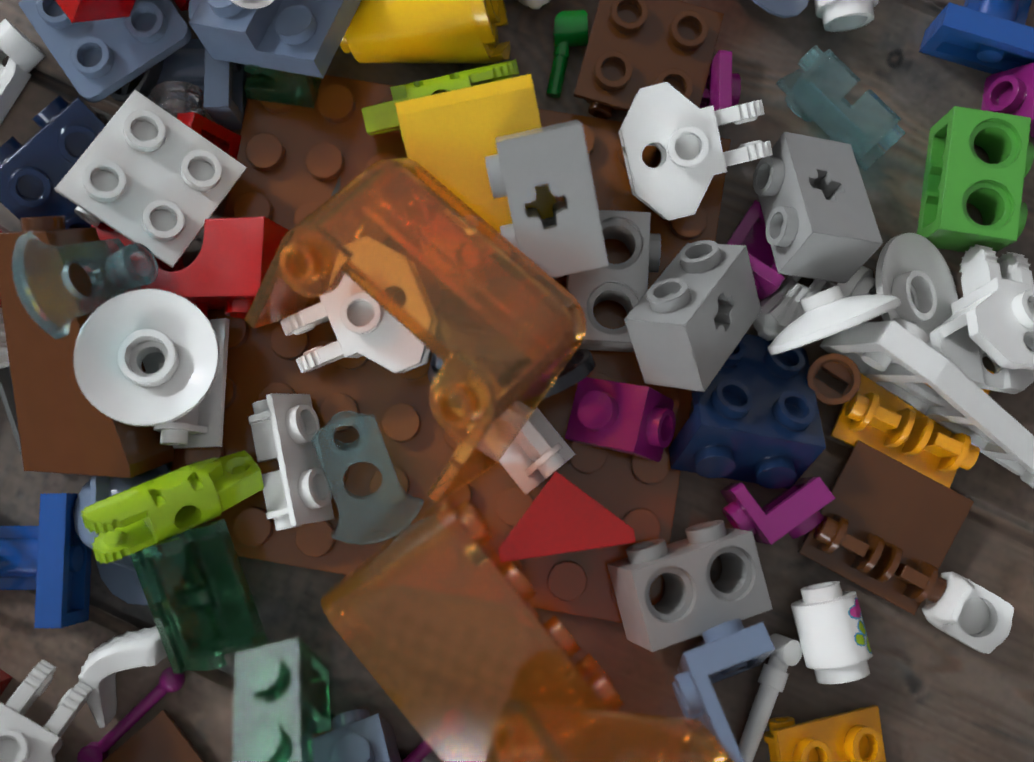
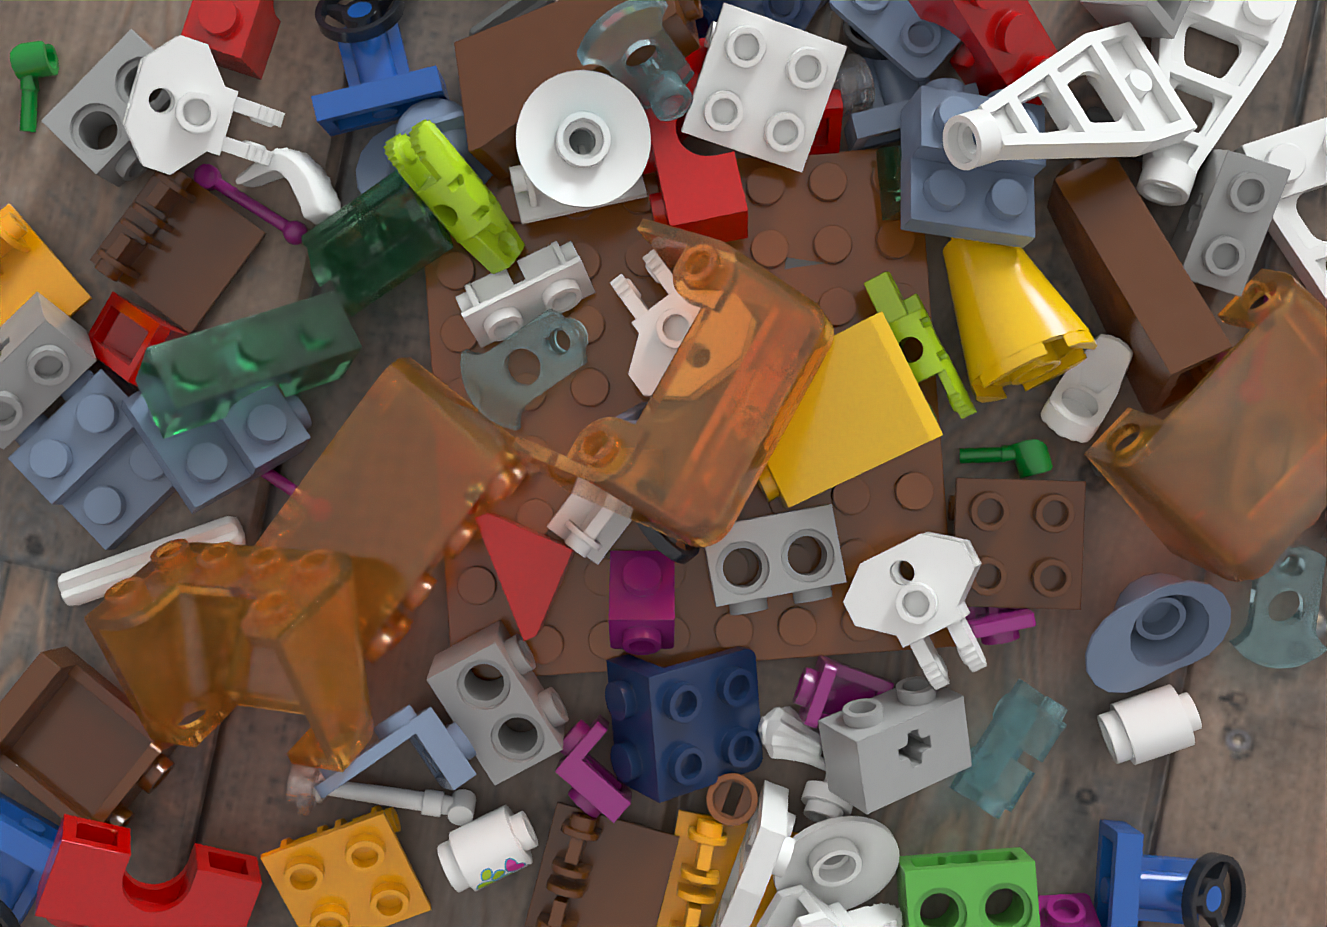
camera: 75 degrees right, 5 degrees up
(559, 158) = (861, 475): light grey brick -> none
(694, 315) = (754, 648): light grey brick -> none
(829, 314) = (783, 780): white dish -> none

